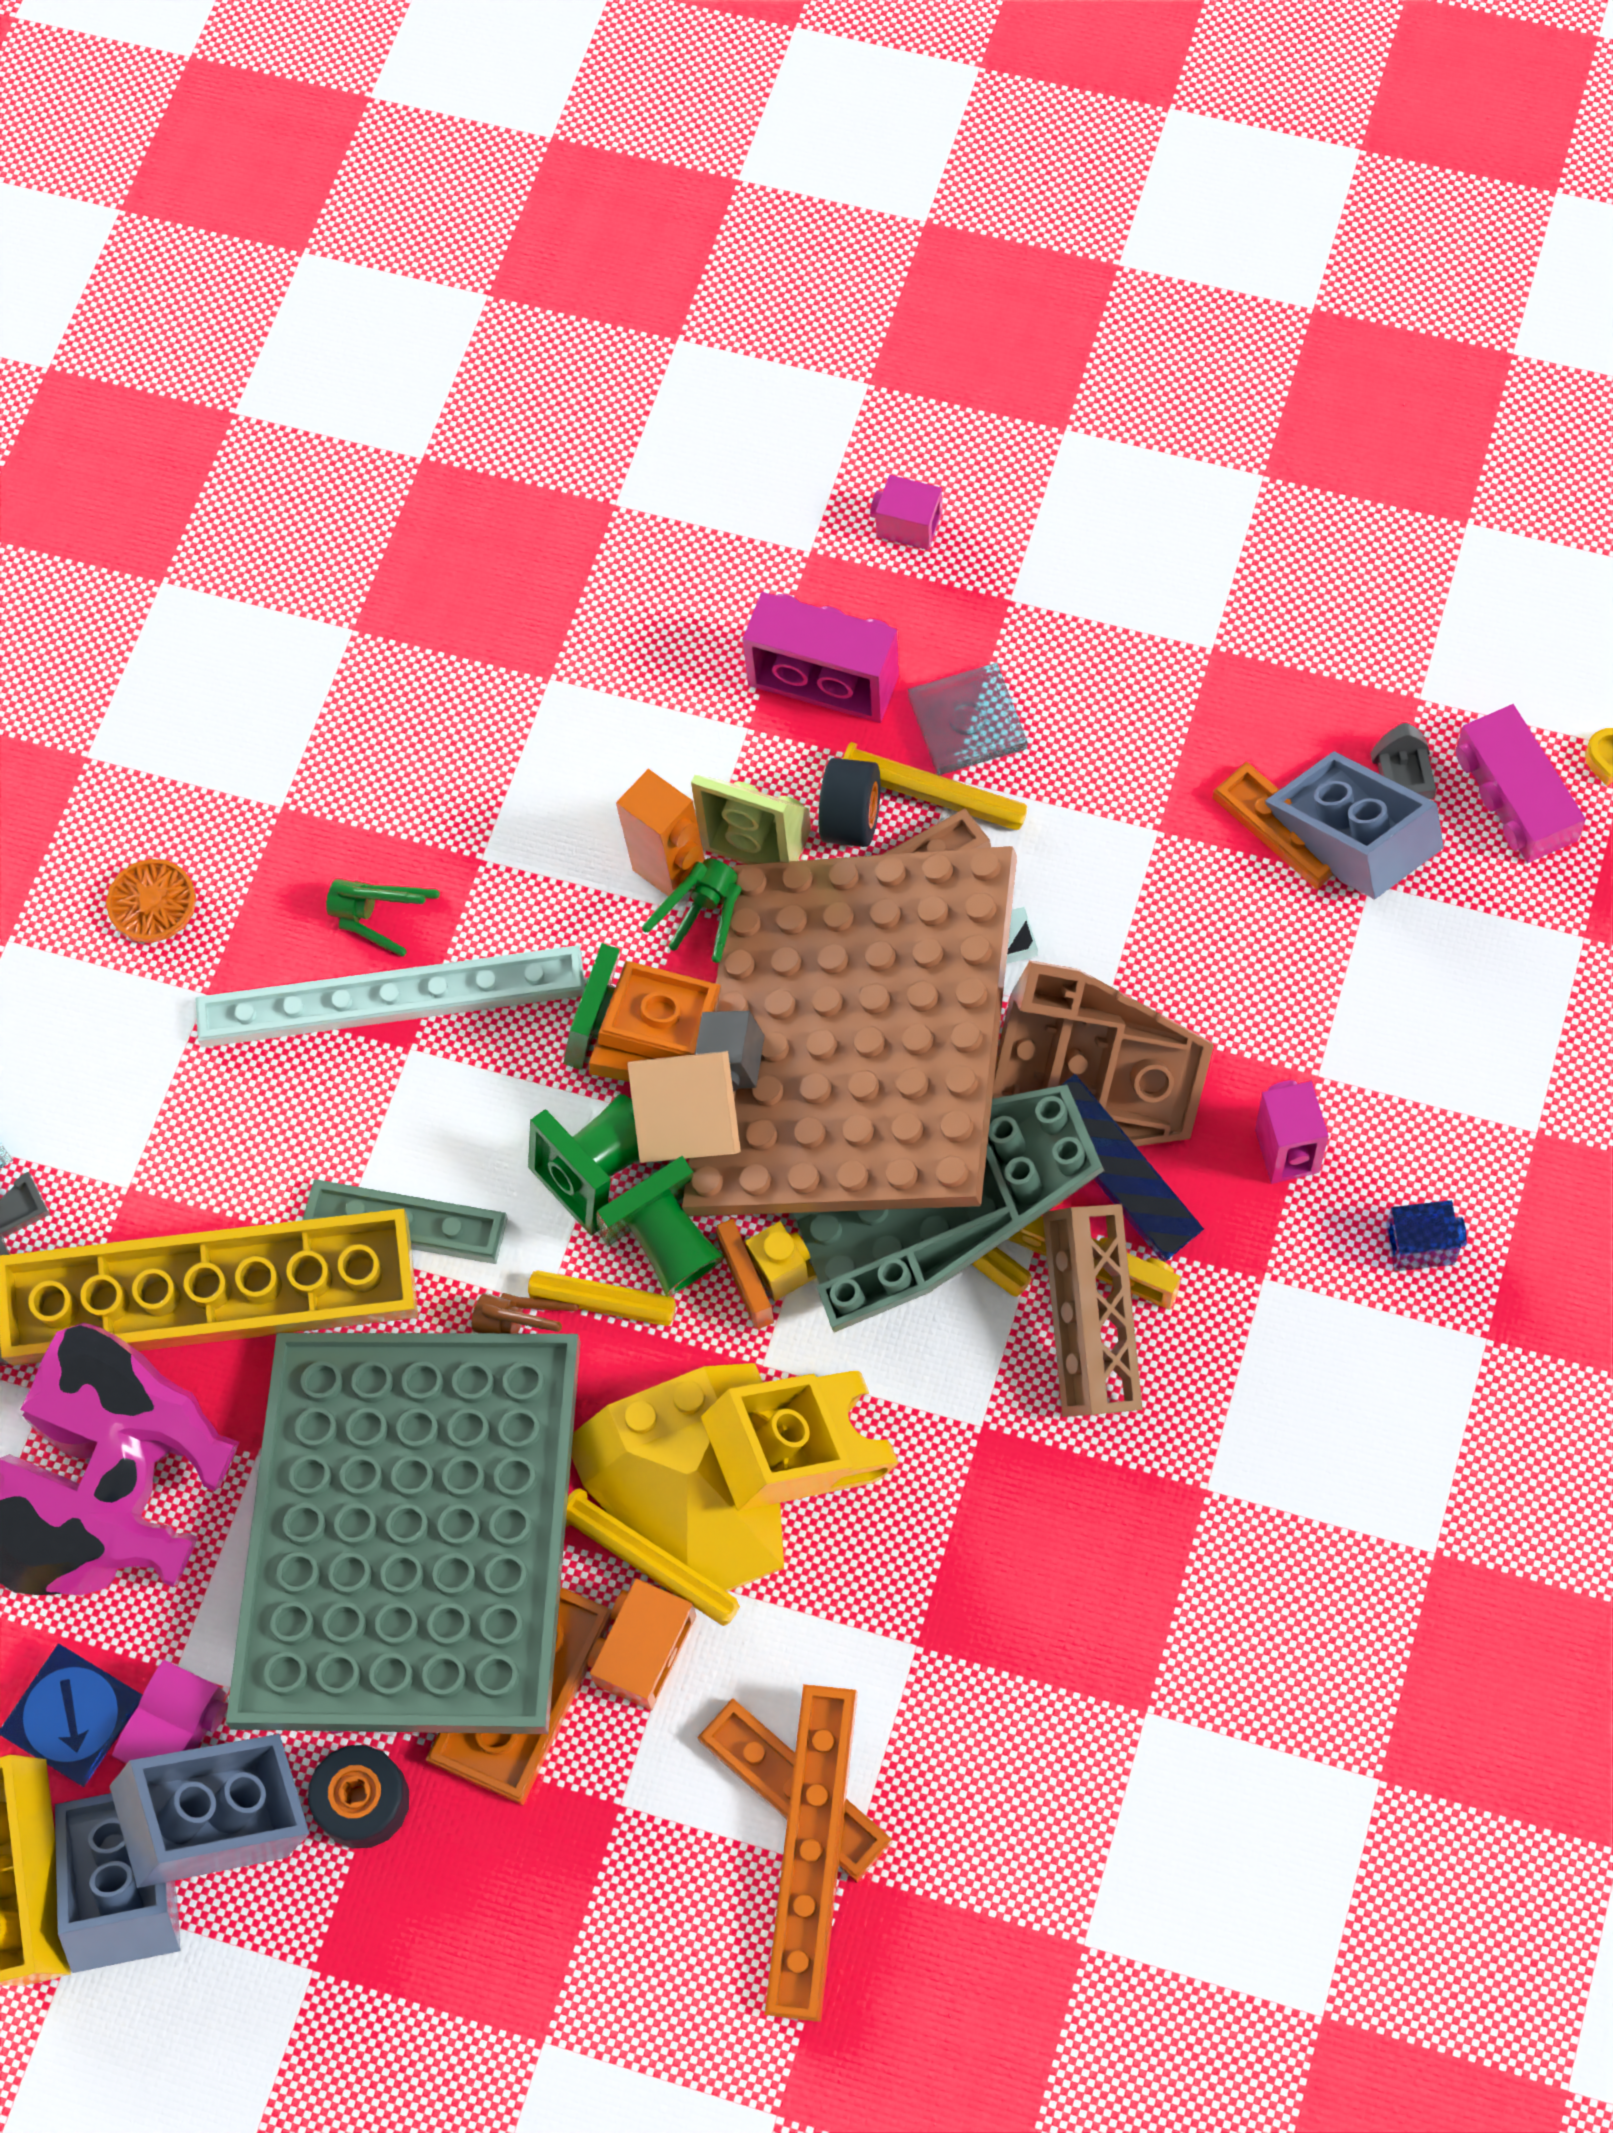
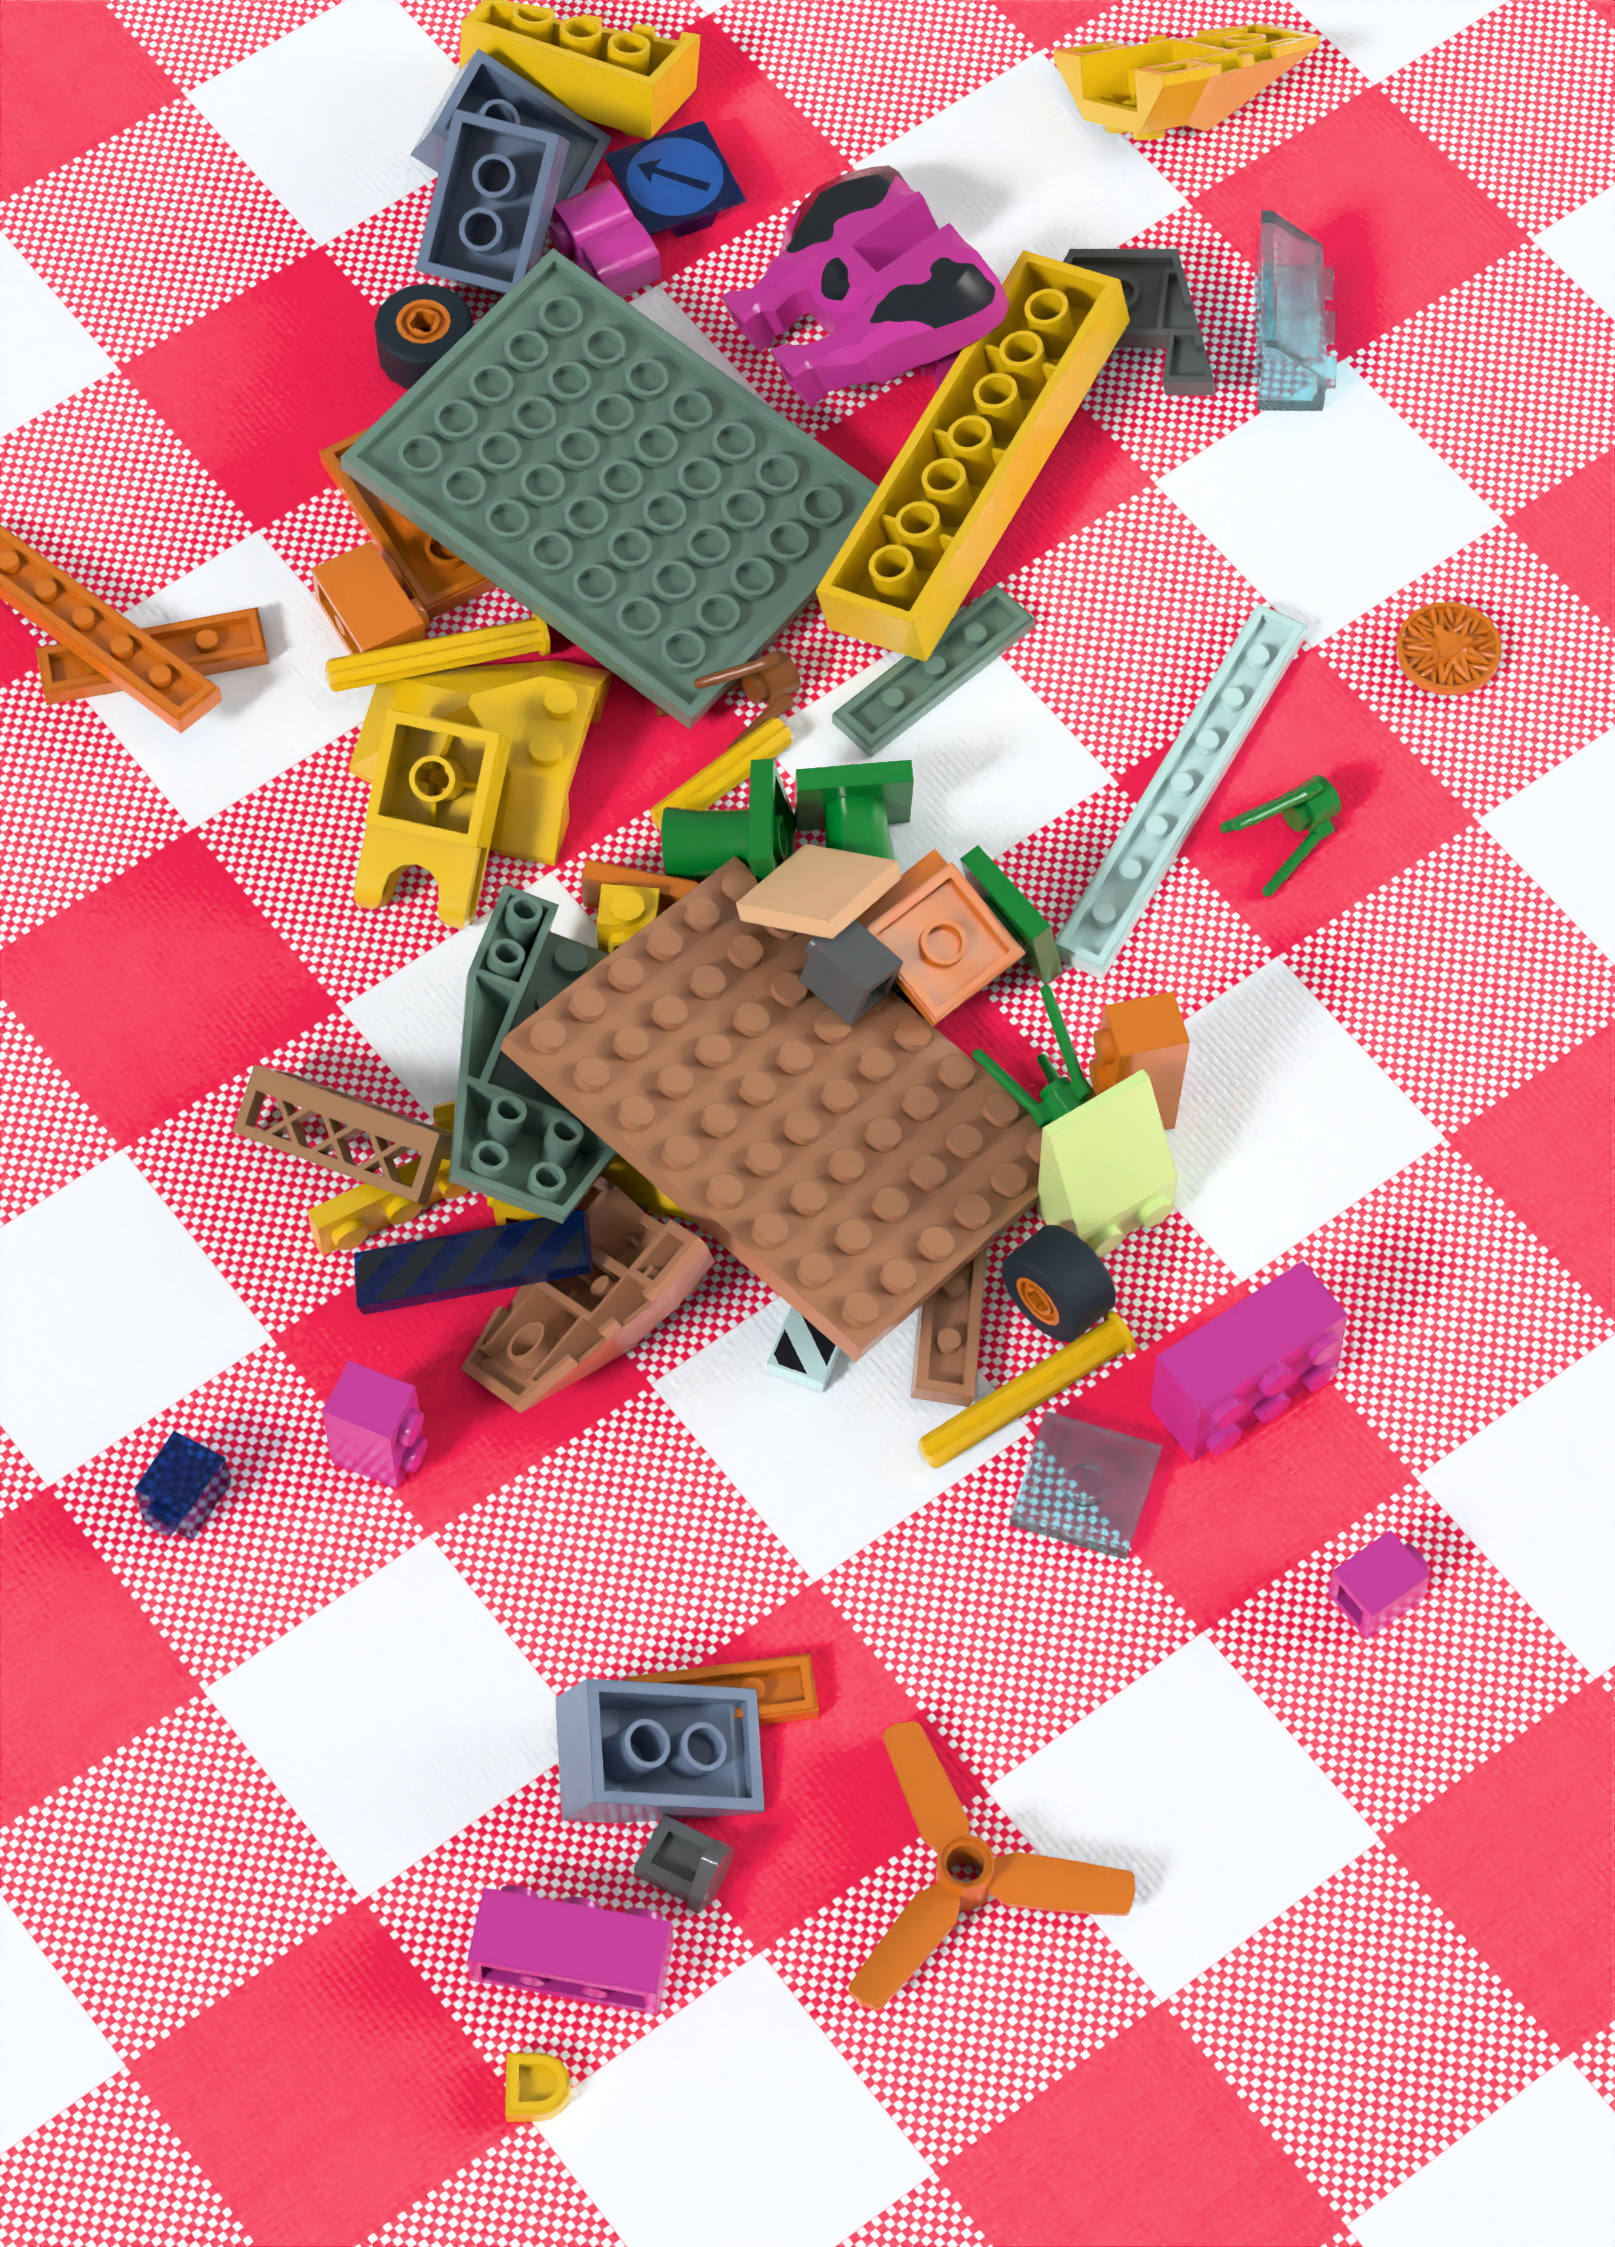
camera: 120 degrees right, 5 degrees down
(1319, 610) = (1013, 1879): none -> orange piece

